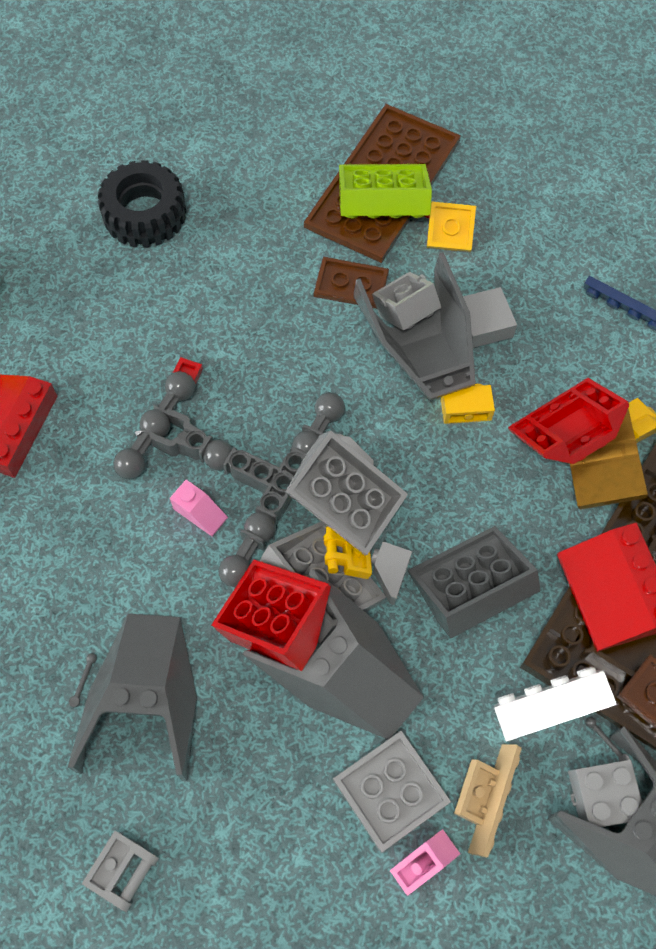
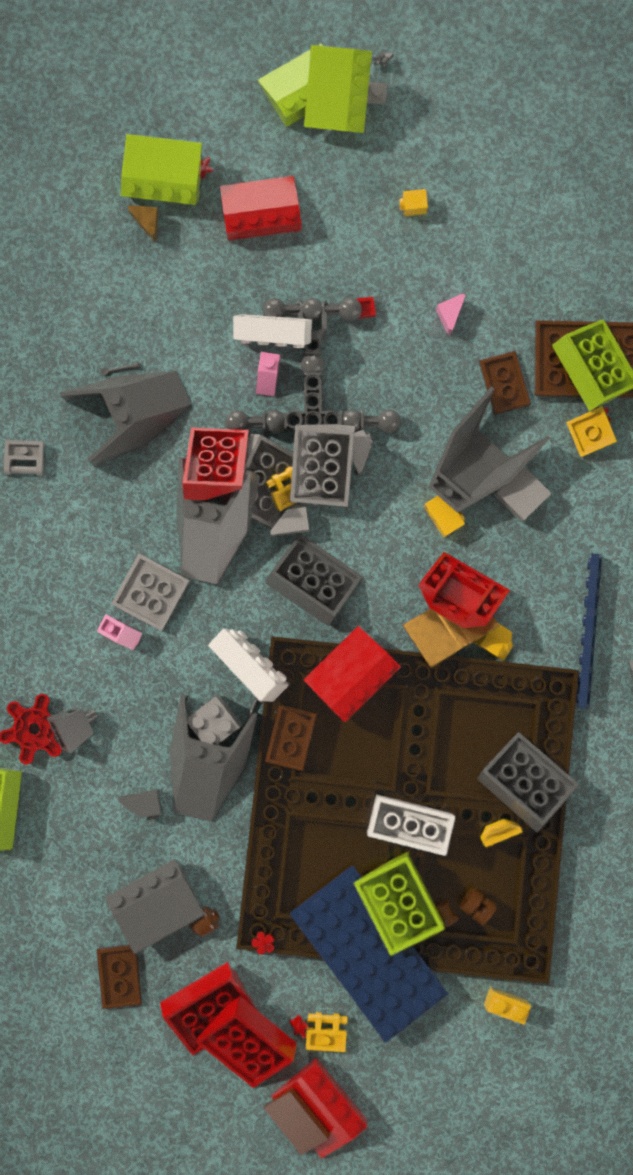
camera: 60 degrees right, 20 degrees up
(106, 271) = (414, 202): none -> yellow brick
(147, 225) = (489, 170): black tyre -> none
(151, 473) = (272, 329): none -> white brick
(246, 294) = (449, 311): none -> bright pink slope
(407, 300) = (503, 430): light grey brick -> none
(485, 797) = (176, 649): tan bracket -> none

